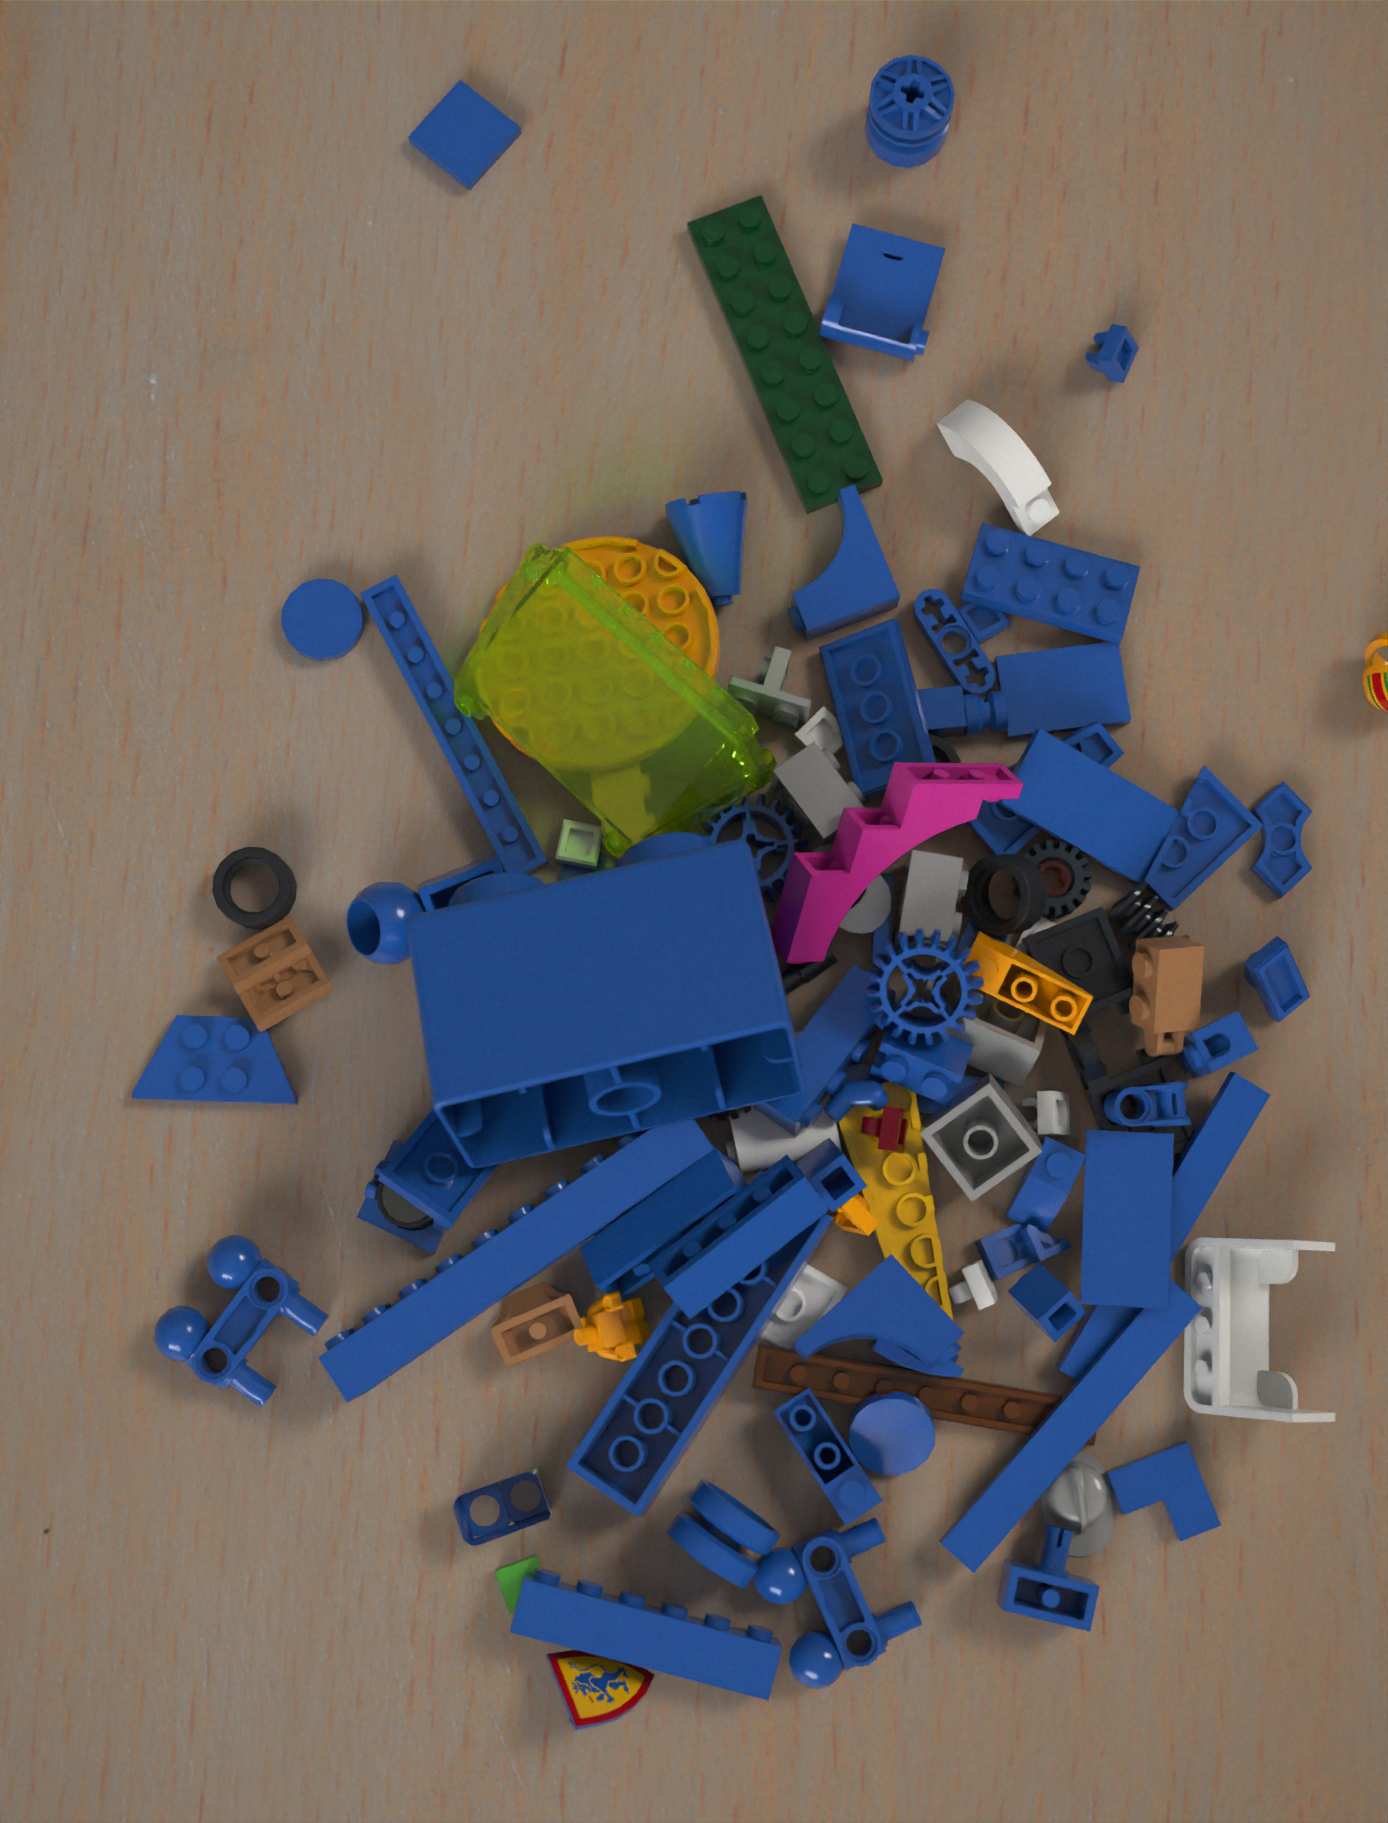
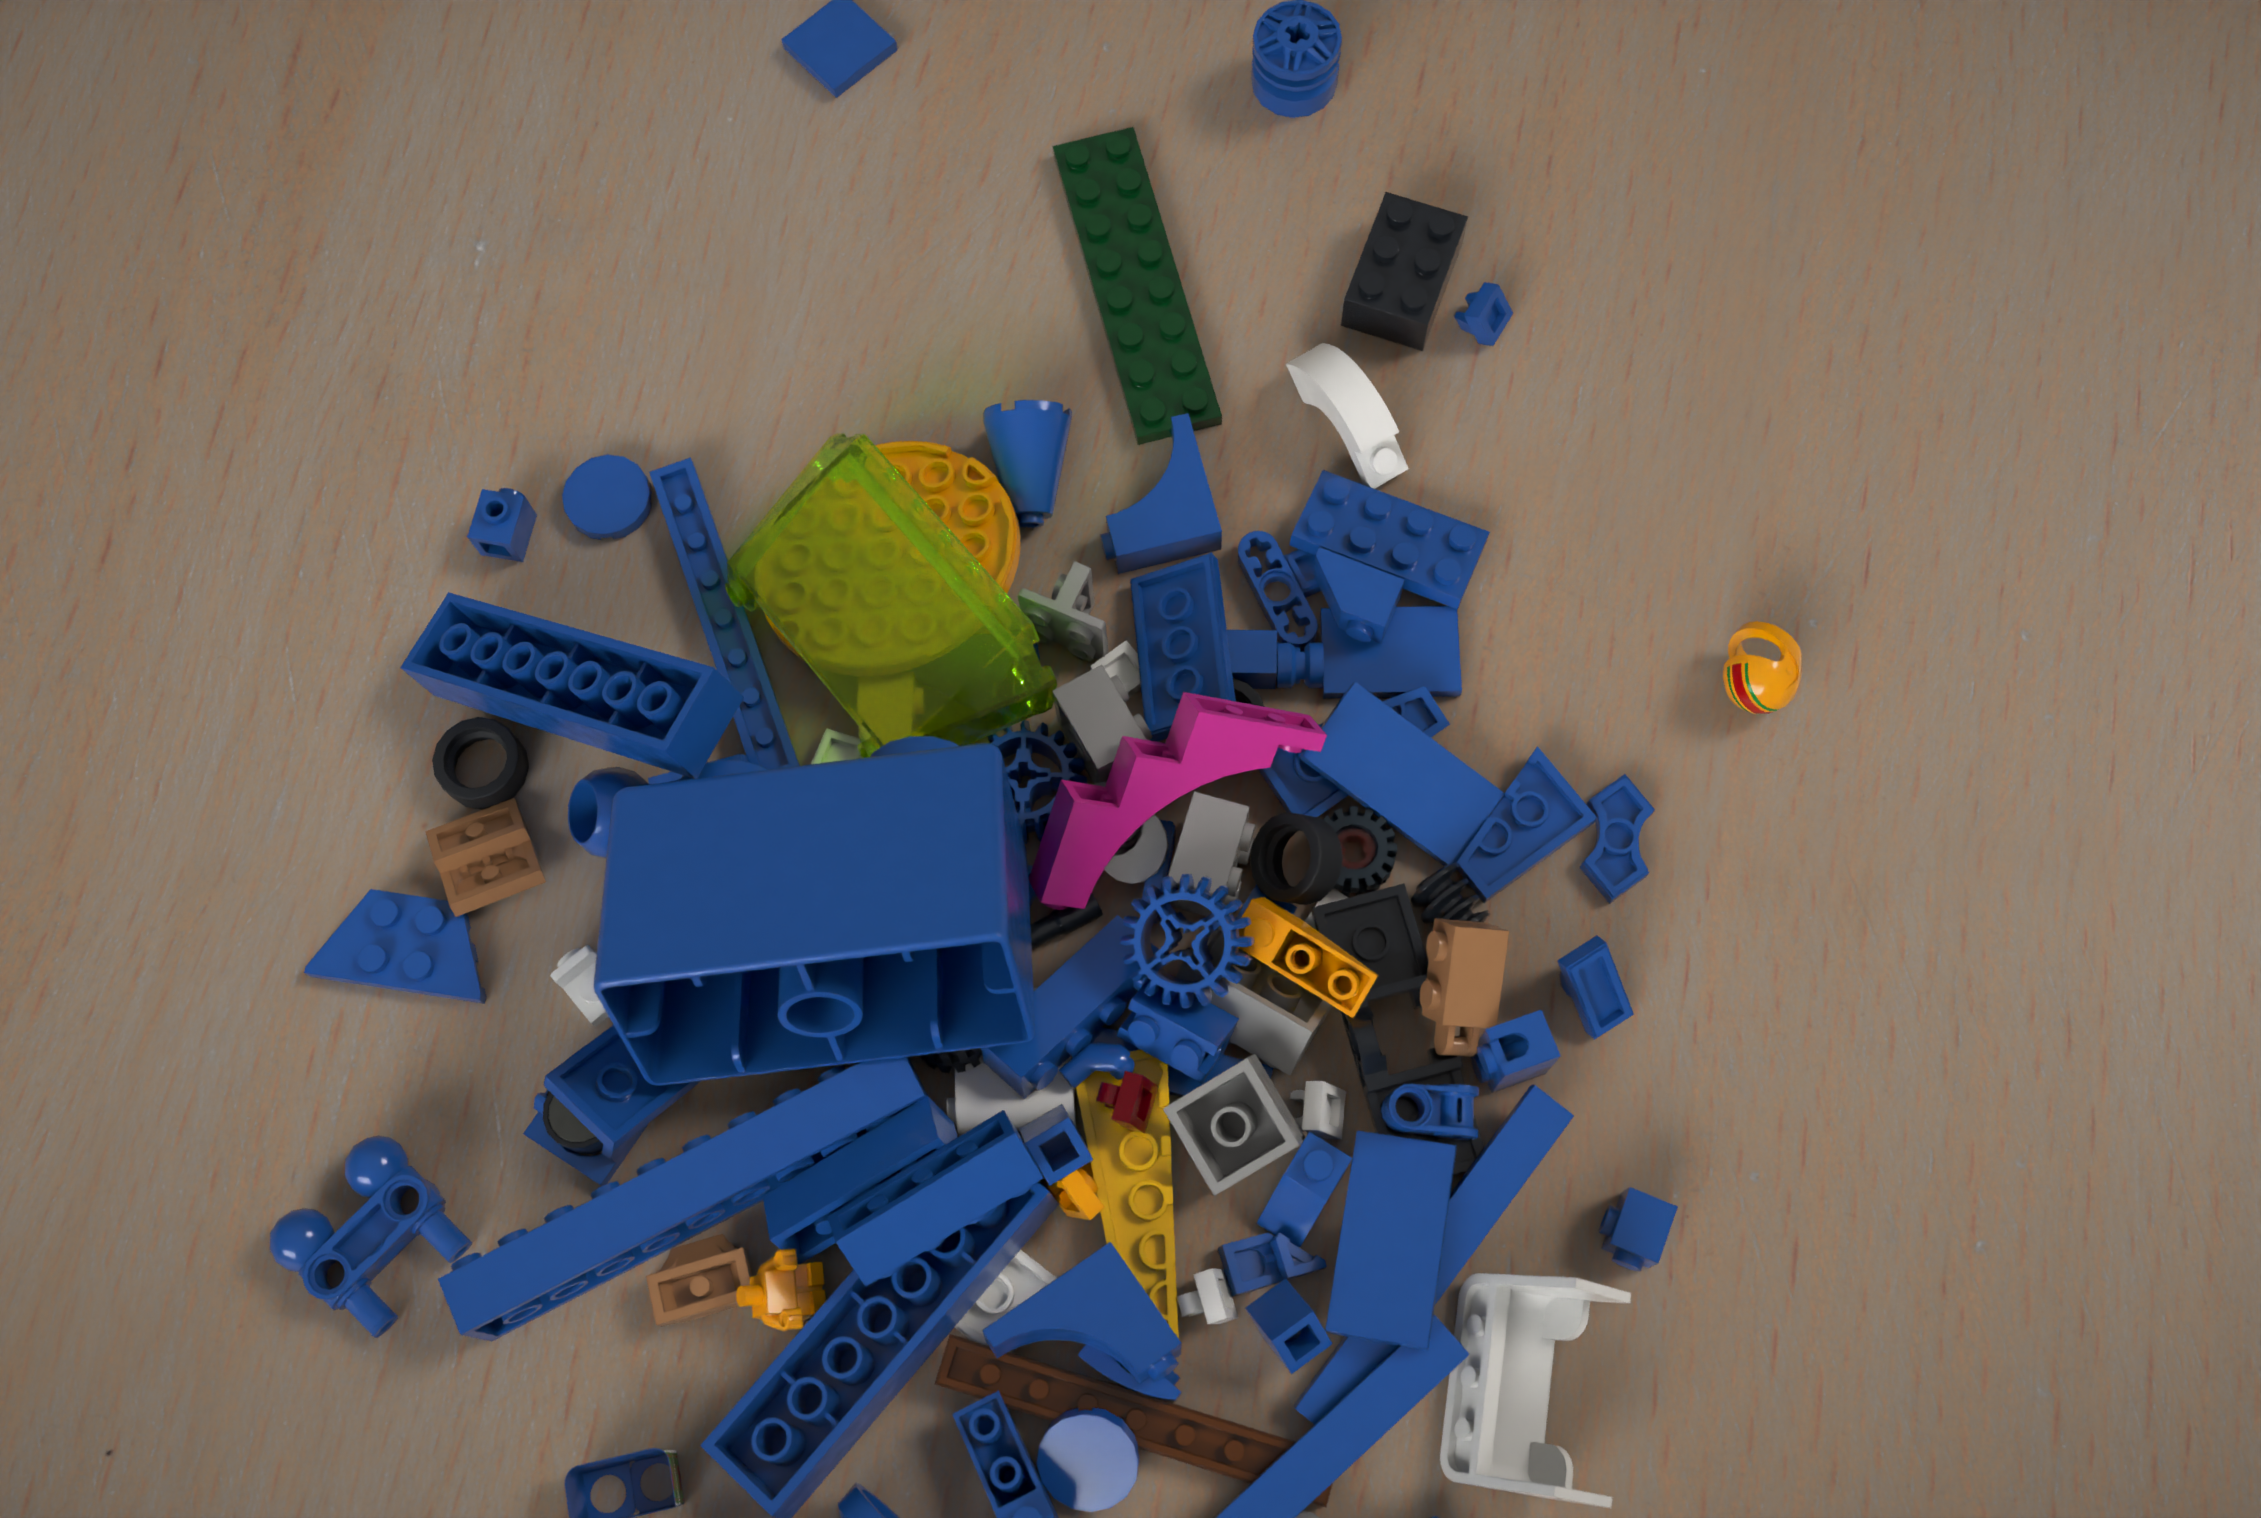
camera: 10 degrees right, 10 degrees down
(231, 658) = (502, 524): none -> blue brick
(338, 813) = (574, 684): none -> blue brick
(392, 1078) = (576, 977): none -> white bracket
(883, 293) = (1247, 233): blue door -> none
(1030, 643) = (1357, 595): none -> blue slope
(1035, 318) = (1403, 271): none -> black piece
(1331, 1183) = (1637, 1229): none -> blue brick

